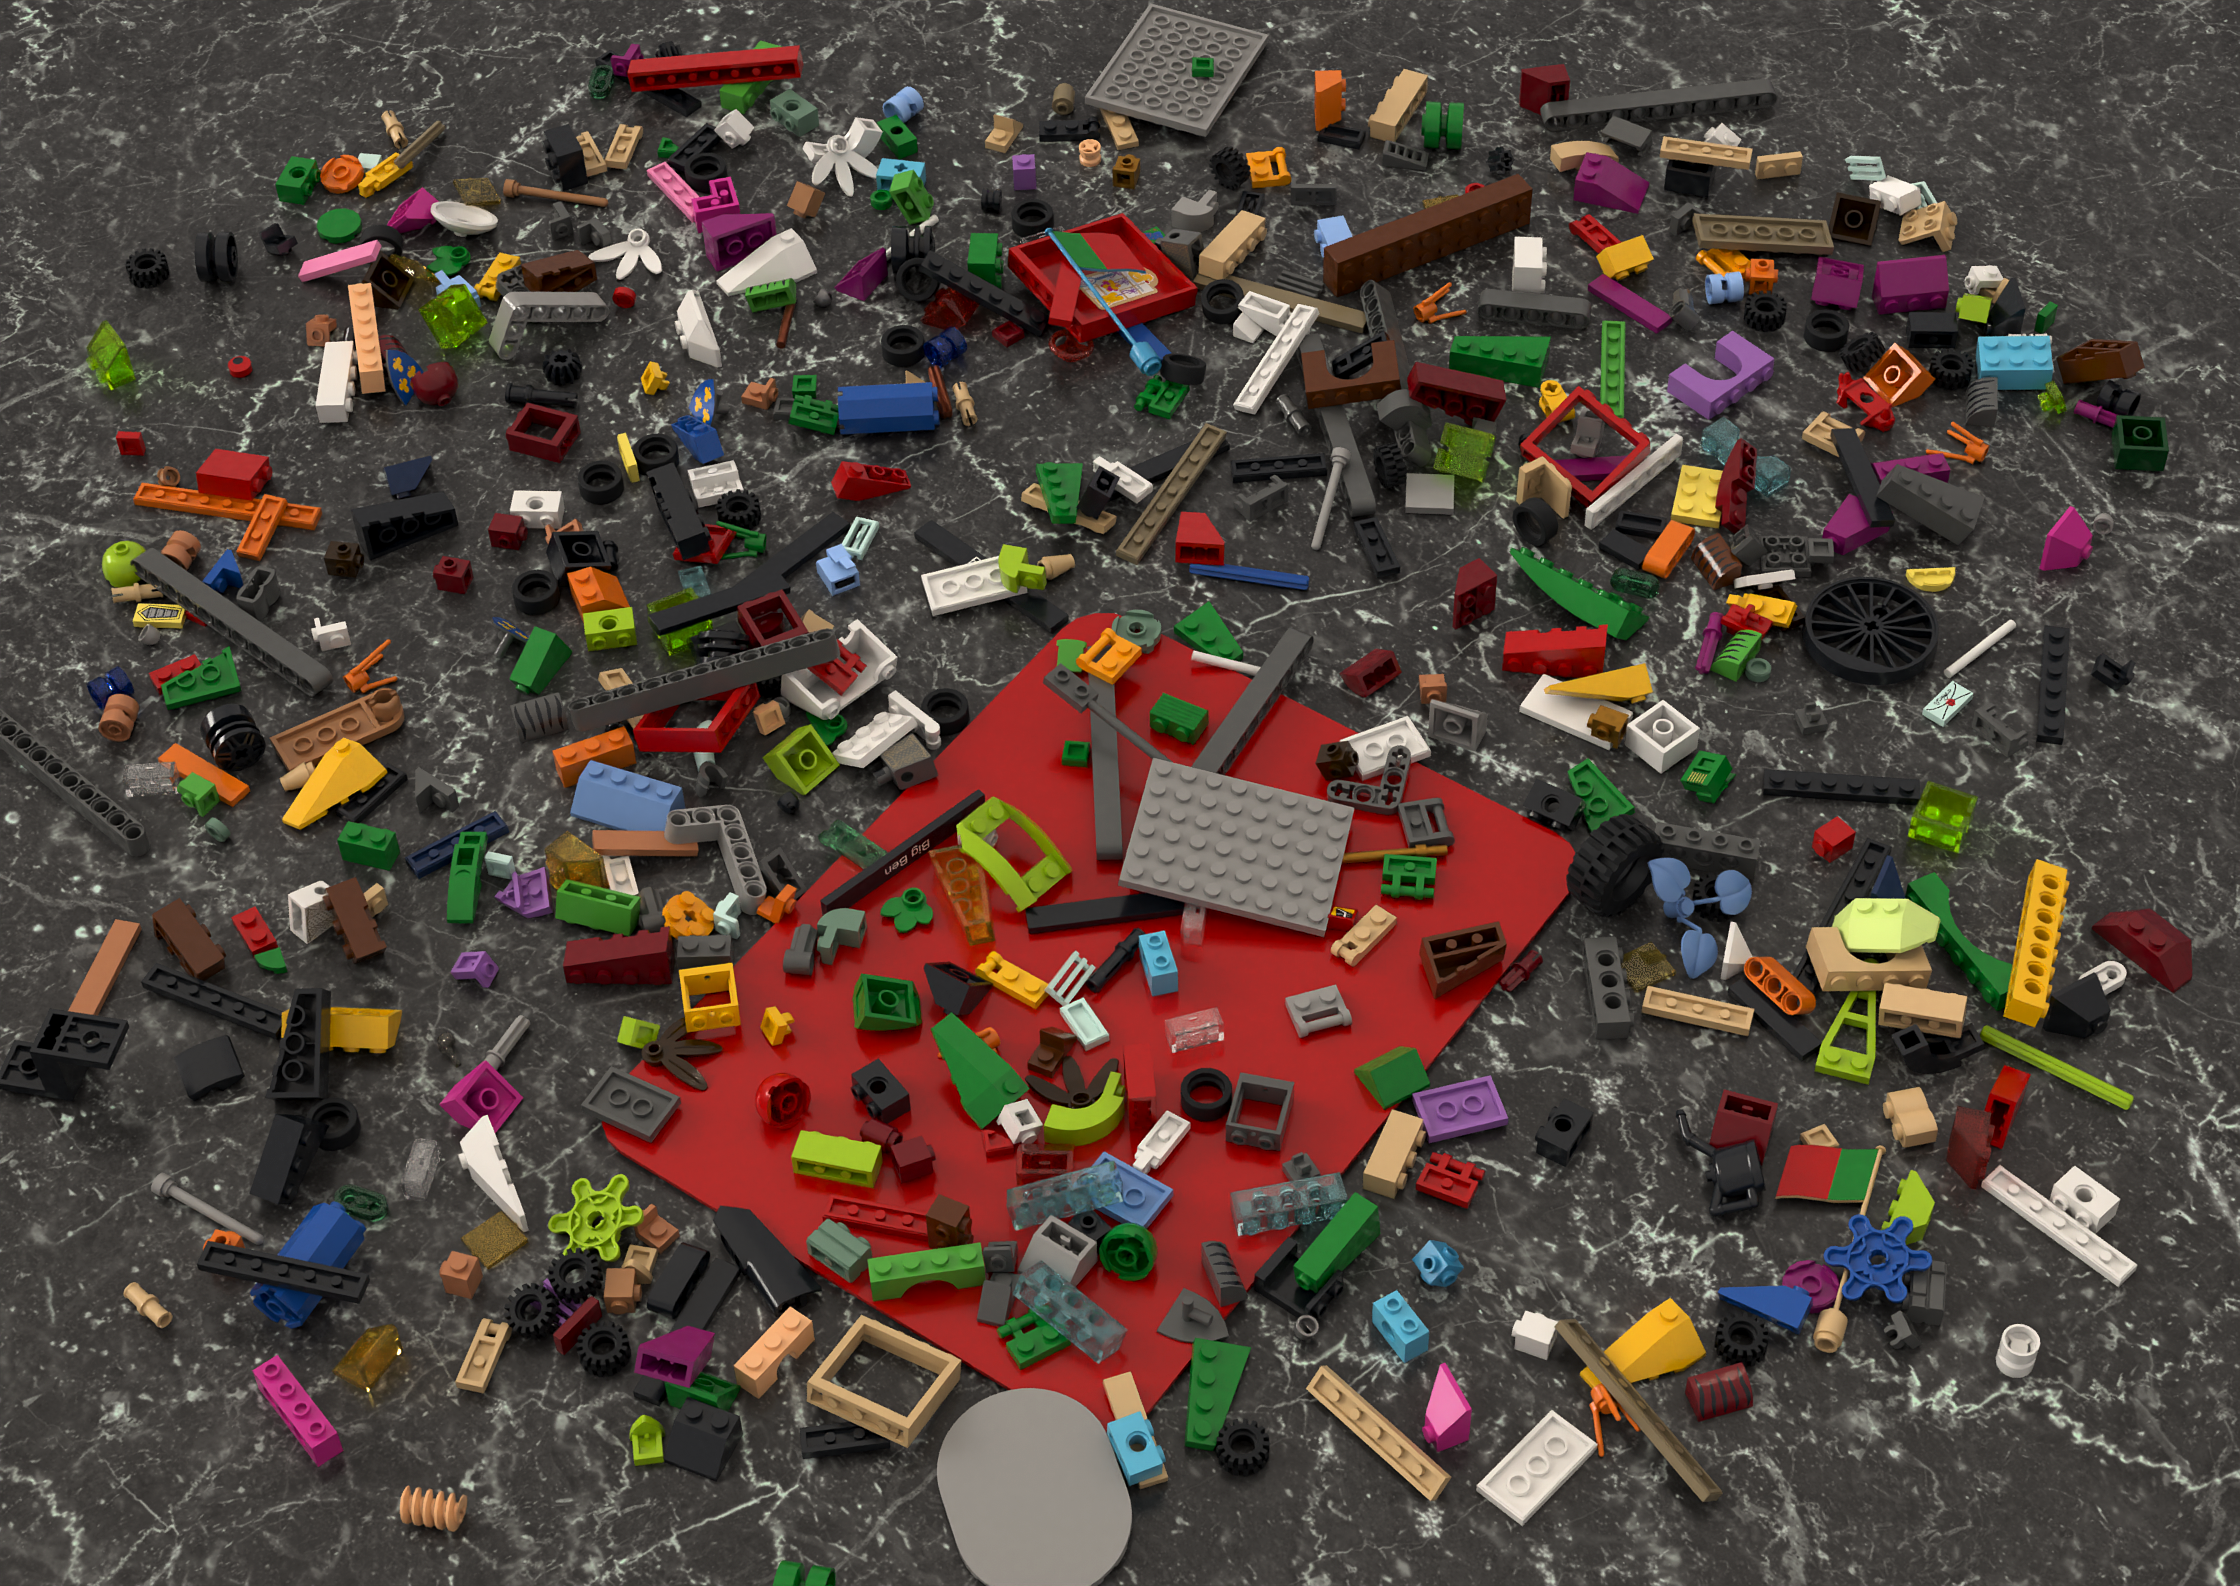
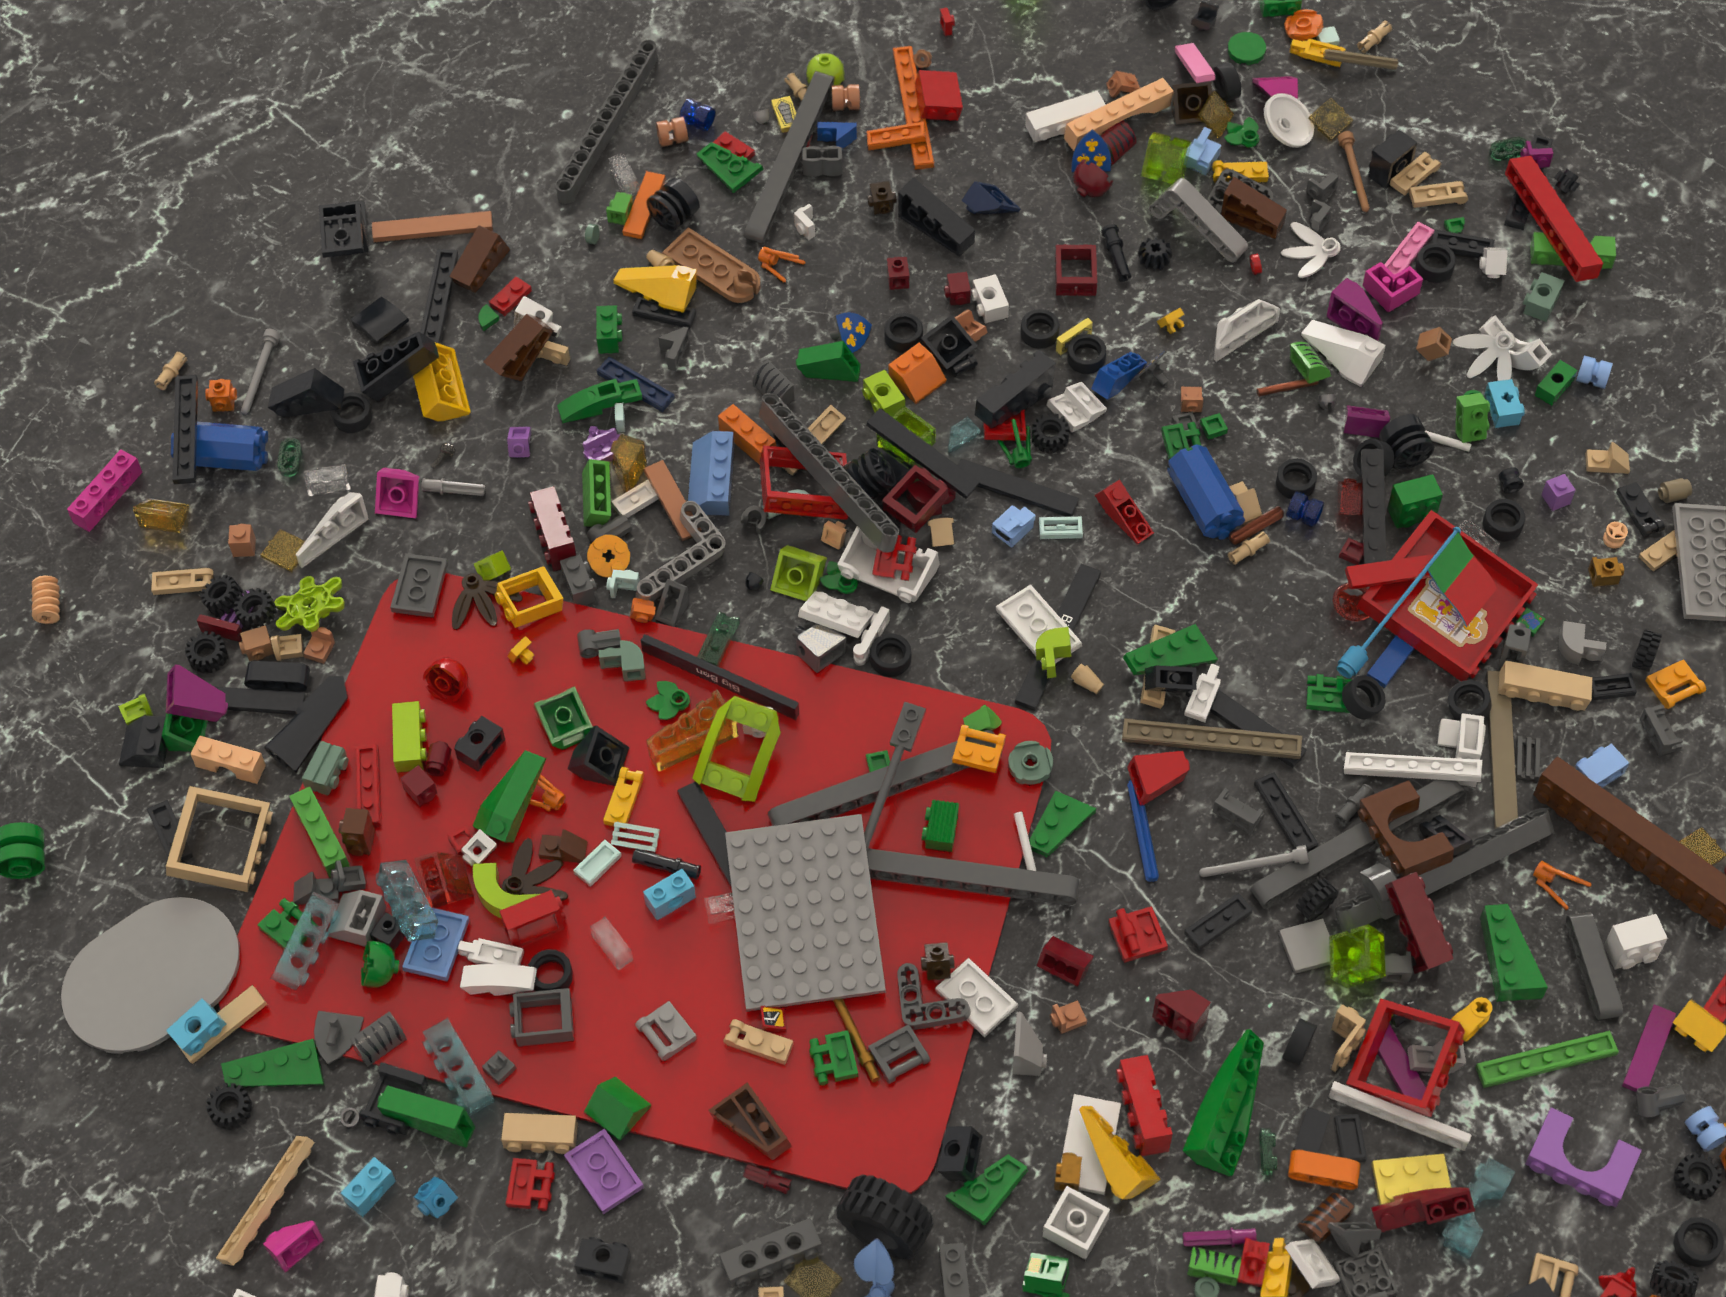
camera: 70 degrees right, 10 degrees up
(240, 366) = (1061, 52): red tile -> none
(1198, 1138) = (497, 979): none -> white slope
(1365, 610) = (1137, 933): none -> red plate

